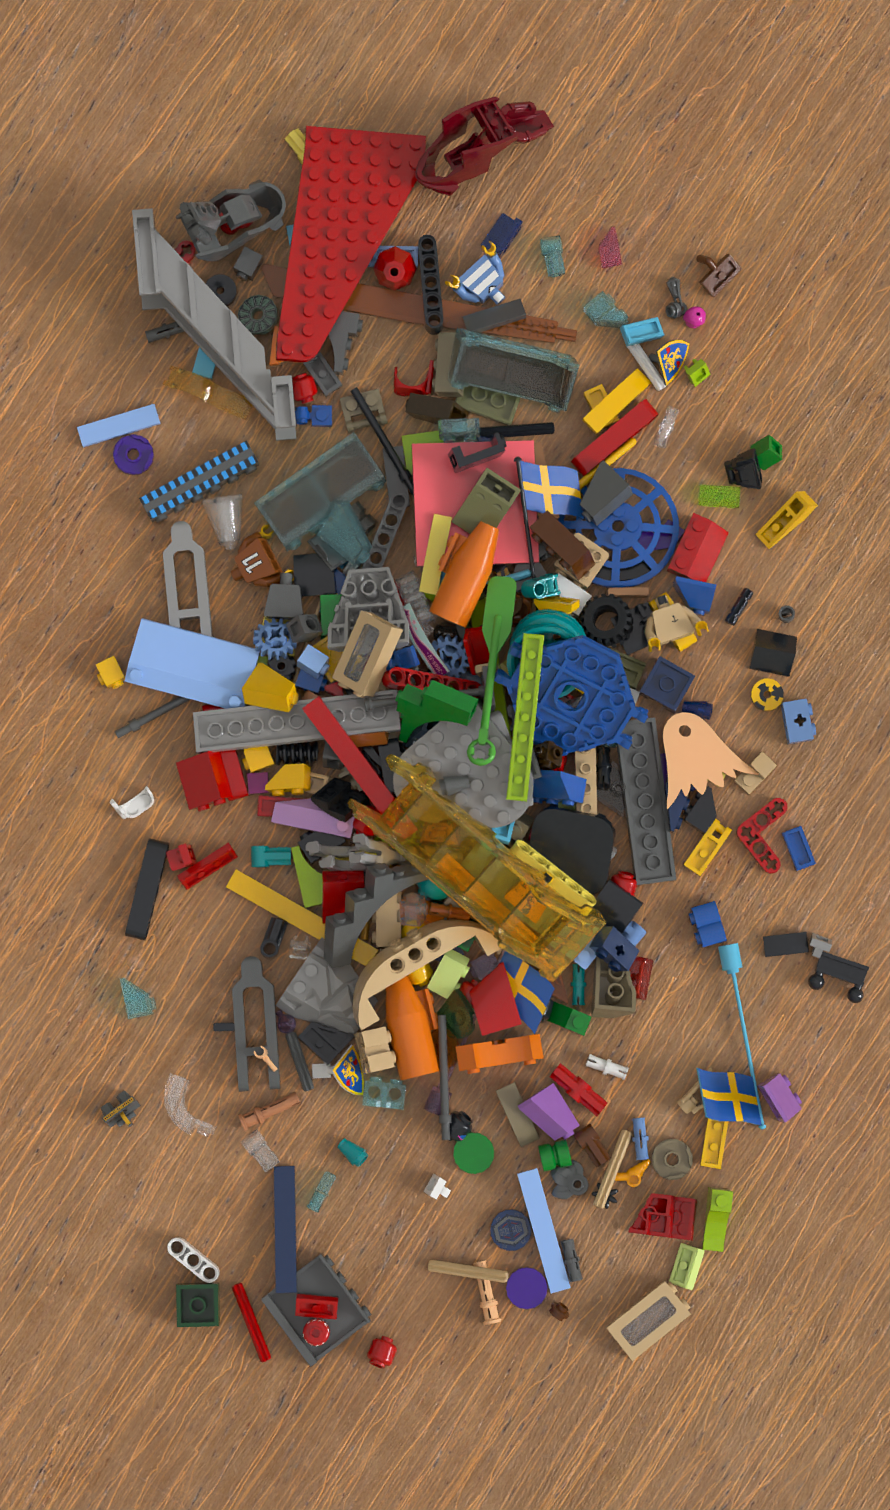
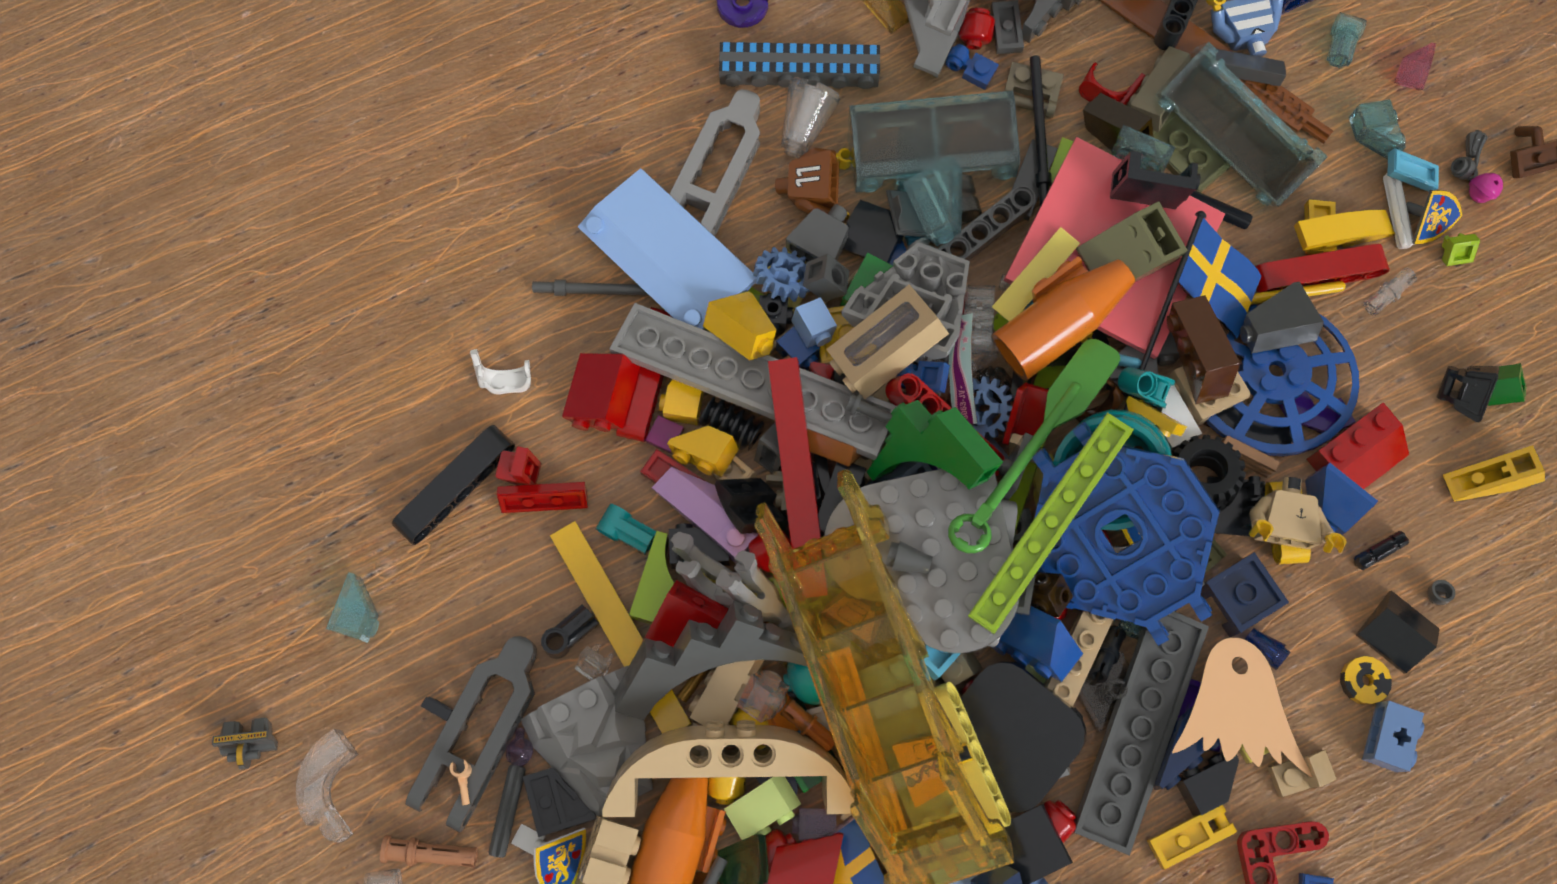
camera: 30 degrees right, 10 degrees down
(110, 673) = (569, 213): yellow brick -> none
(719, 496) = (1417, 405): clear neon green plate -> none

